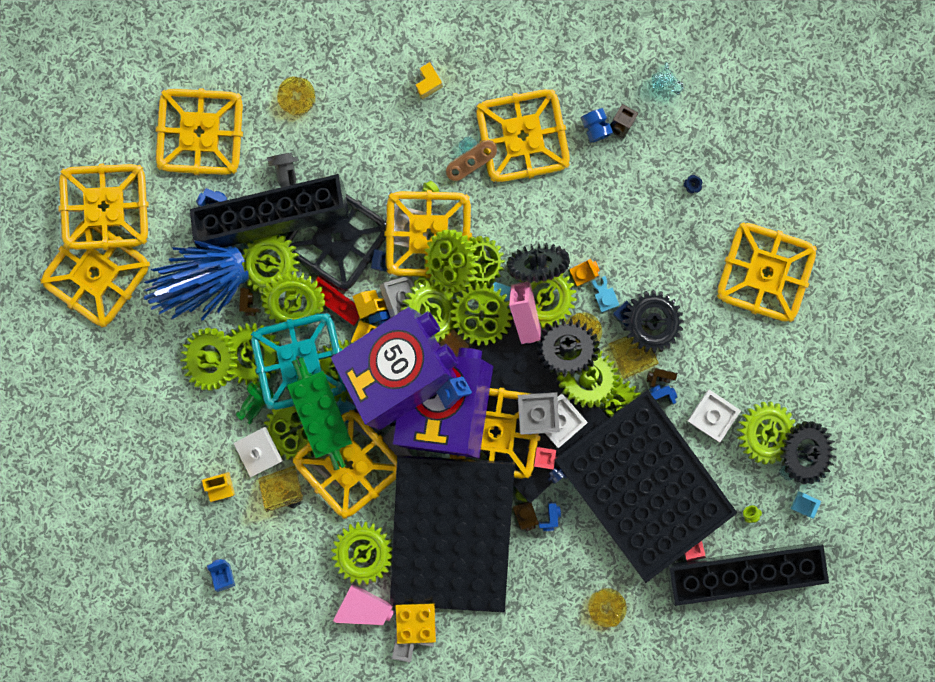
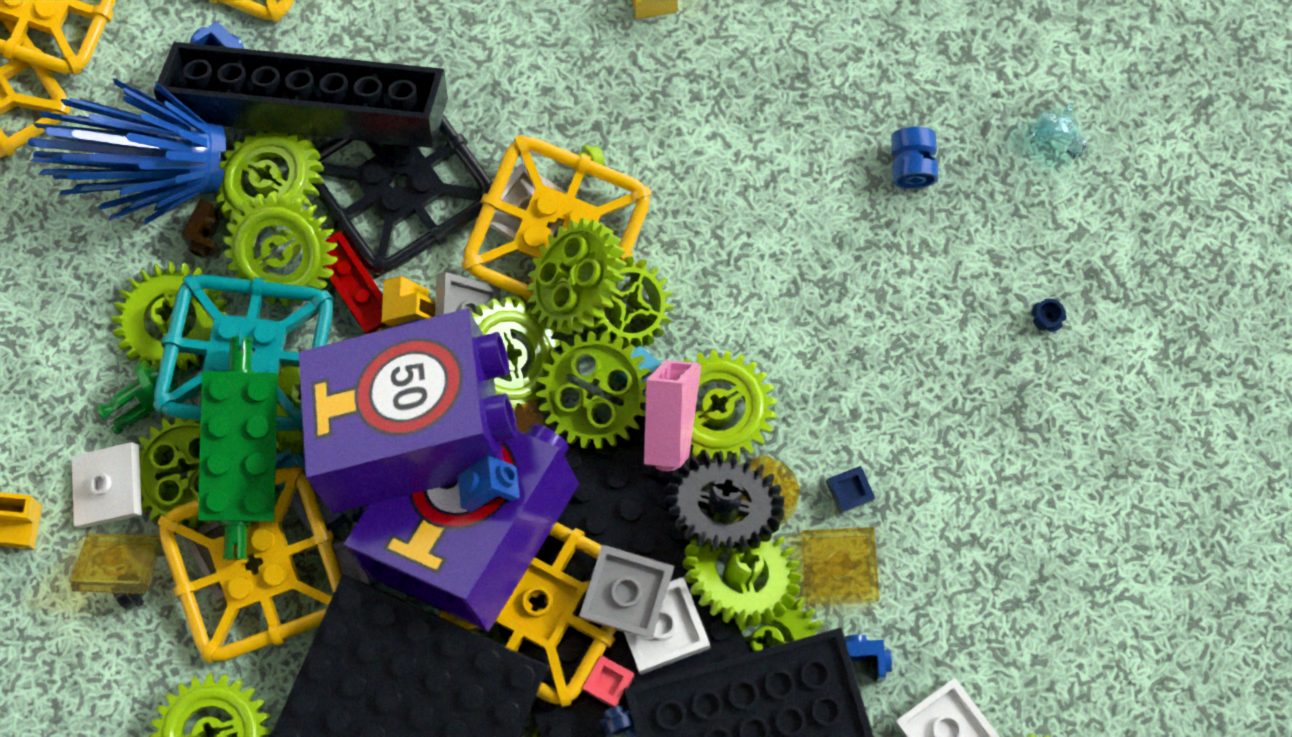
camera: 20 degrees right, 15 degrees down
(199, 359) = (82, 288): lime gear -> none
(284, 168) = (361, 33): dark grey piece -> none
(379, 261) = (454, 243): dark blue plate -> none
(467, 141) = (682, 107): clear light blue plate -> none
(476, 153) = (693, 133): medium nougat plate -> none
(529, 124) = (763, 145): yellow plate -> none
(538, 257) = (727, 341): black gear -> none
(584, 272) = (804, 393): light orange bracket -> none
(606, 297) = (825, 450): medium azure plate -> none
(623, 121) = (962, 168): dark brown bracket -> none
(635, 321) = (861, 508): black gear -> none
(664, 376) = (881, 622): dark brown bracket -> none
(772, 283) = (1131, 535): yellow plate -> none

